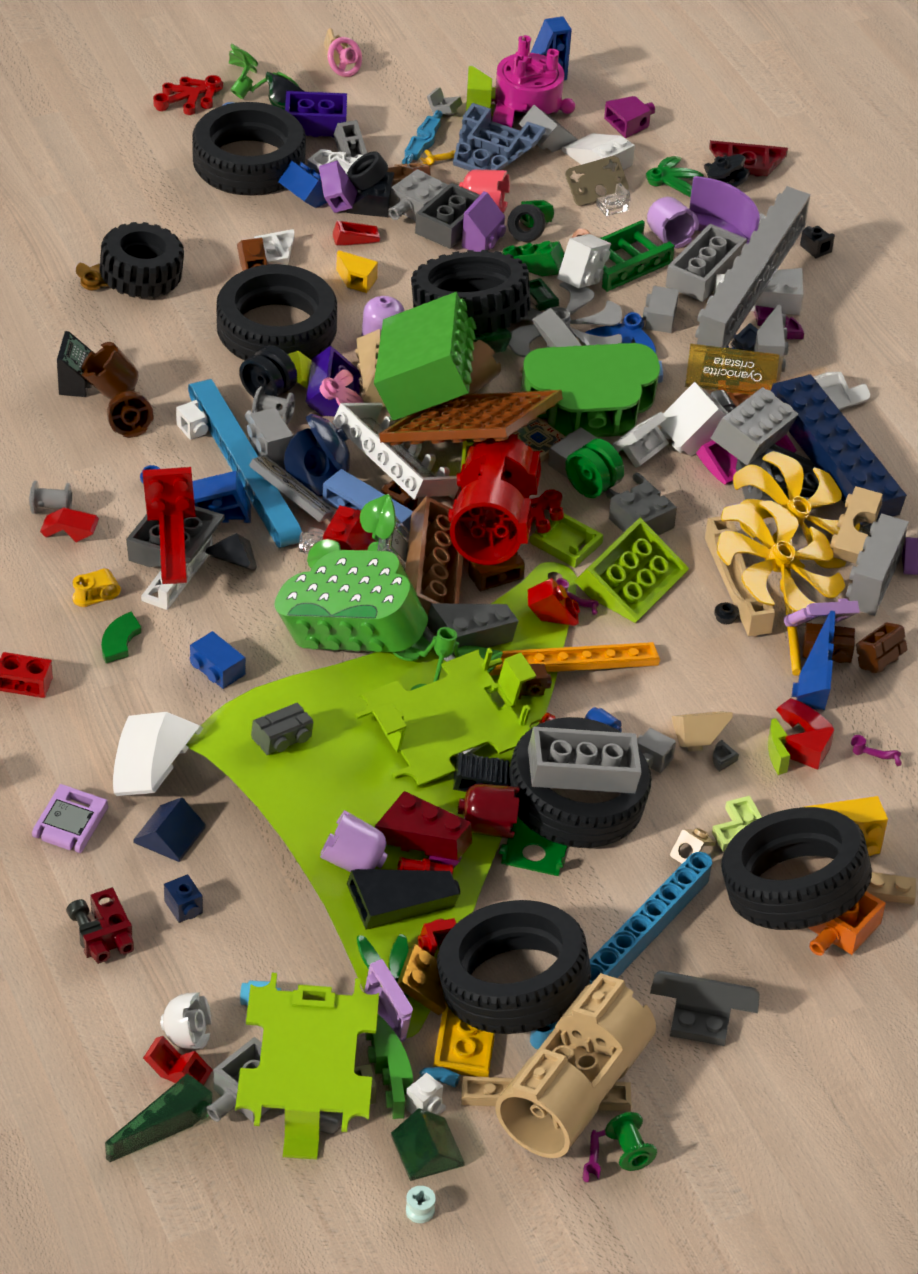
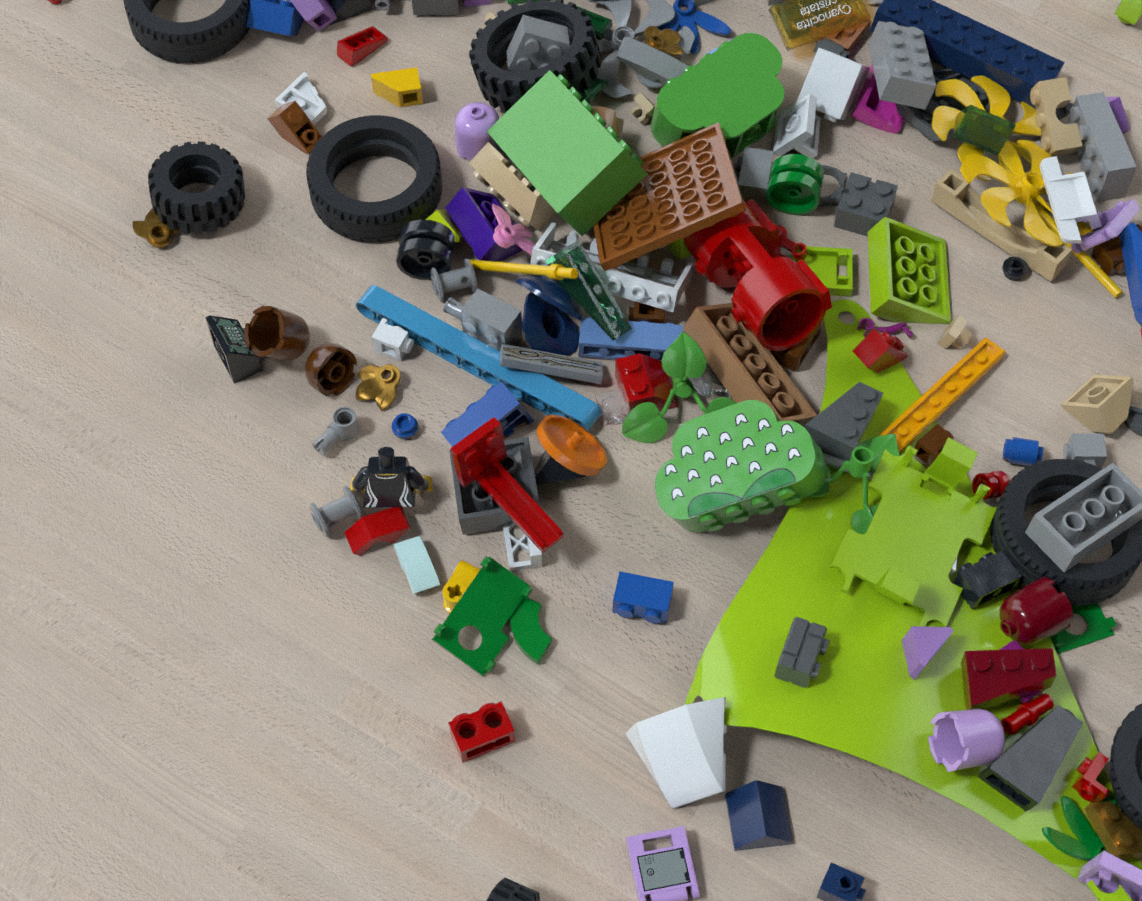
camera: 30 degrees left, 15 degrees up
(76, 558) = (416, 564): none -> light aqua slope
(97, 605) = (487, 607): none -> green piece
(102, 494) = (389, 481): none -> black torso
(106, 453) = (337, 431): none -> light grey pin
(158, 443) = (376, 387): none -> pearl gold plate
(254, 540) = (571, 445): none -> orange piece
(334, 417) = (554, 271): none -> yellow bar
(355, 447) = (590, 290): none -> clear green slope
(383, 781) = (921, 645): none -> medium lavender slope
(474, 275) = (536, 44): none -> light grey brick
(586, 331) = (664, 40): none -> pearl gold plate
(628, 626) = (955, 334): none -> tan tile
(770, 492) = (982, 129): none -> clear green slope
(805, 577) = (1069, 200): none -> white plate

